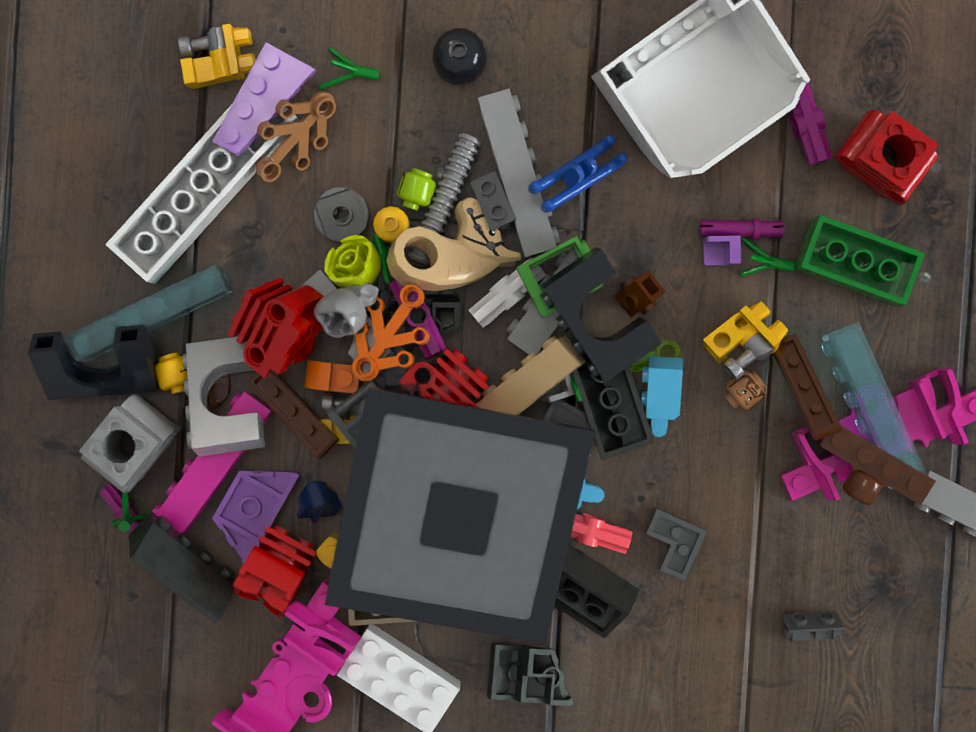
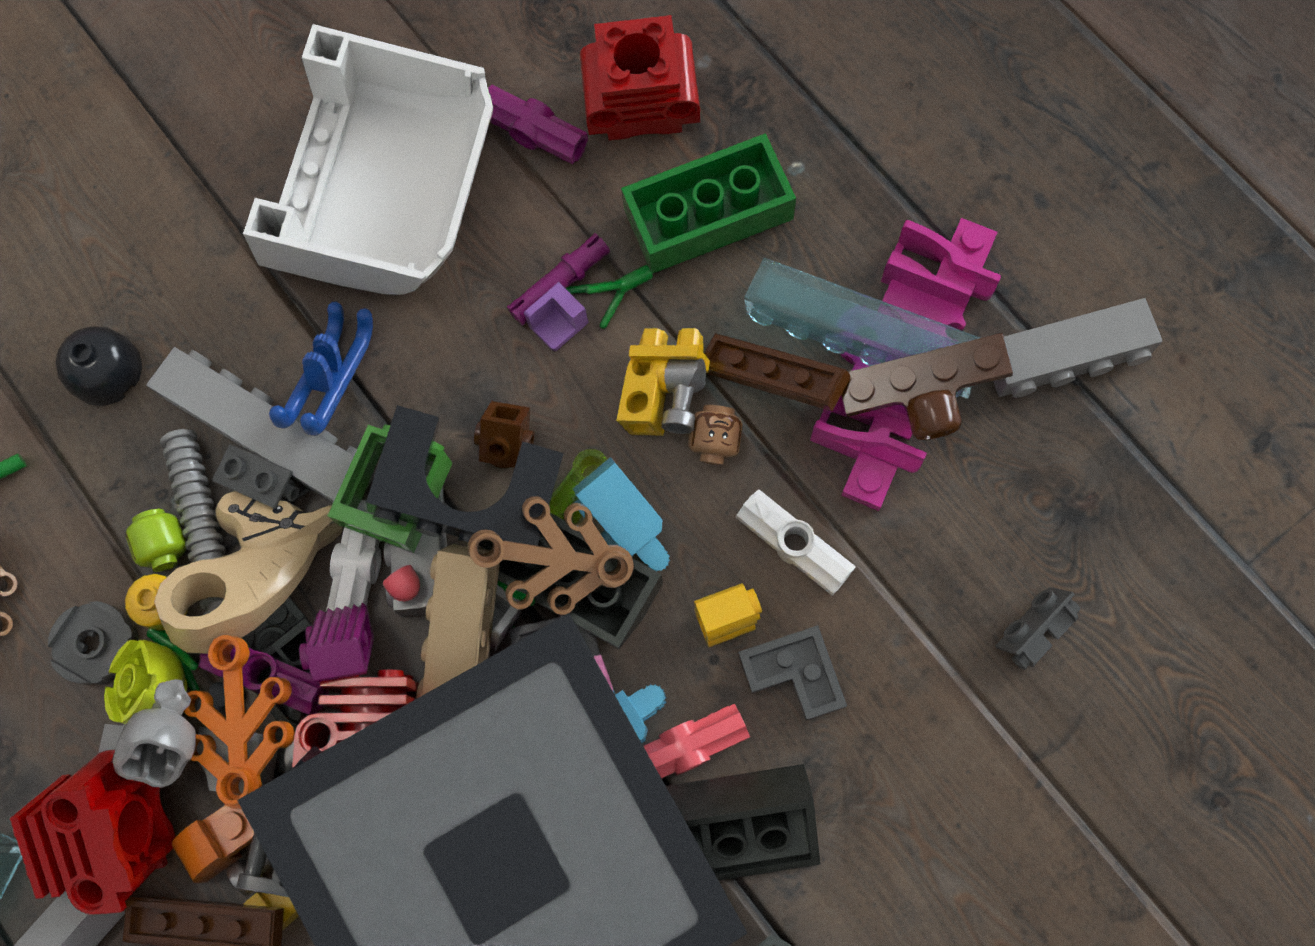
camera: 30 degrees left, 15 degrees down
(468, 336) = (338, 643): none -> magenta brick
(524, 333) = (403, 584): none -> coral hinge
(611, 395) = (558, 559): none -> medium nougat plant
(668, 489) = (727, 614): none -> yellow brick
(737, 498) = (774, 524): none -> white piece

